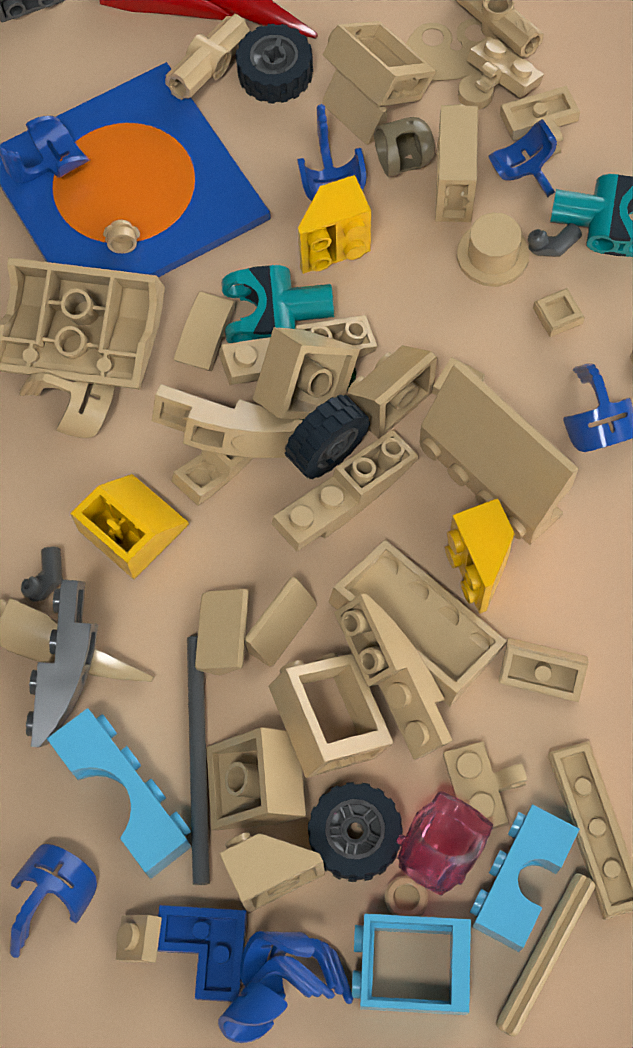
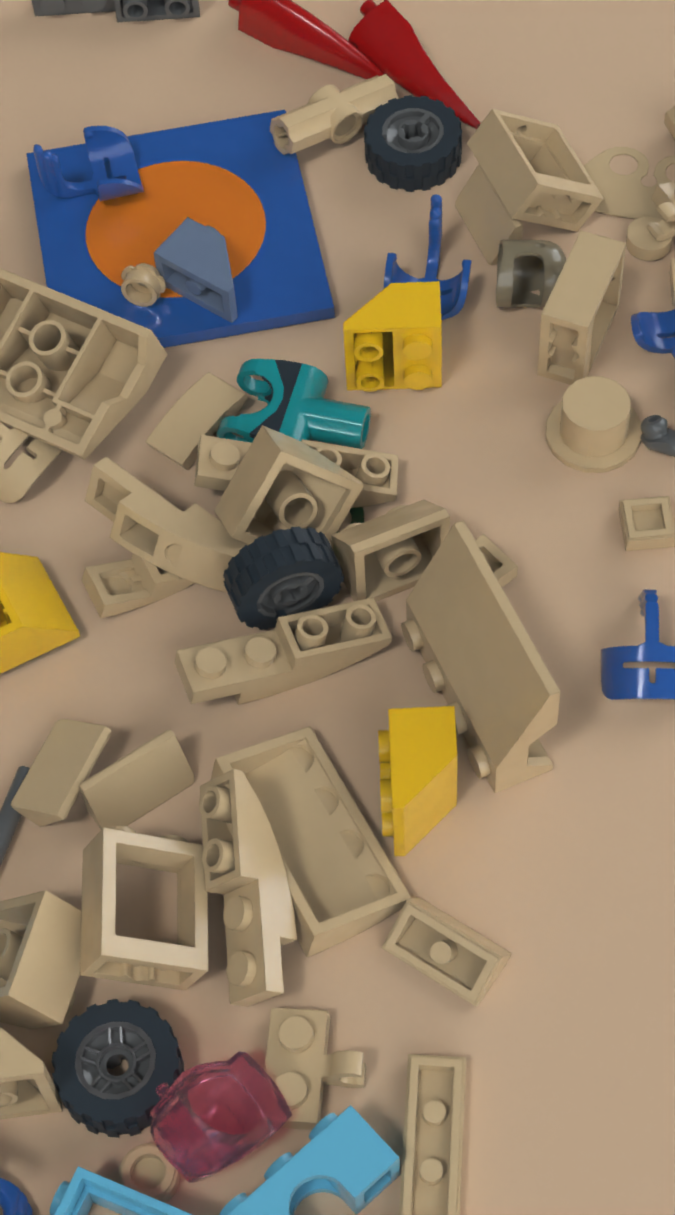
camera: 20 degrees right, 10 degrees down
(162, 211) = (198, 268): none -> sand blue slope

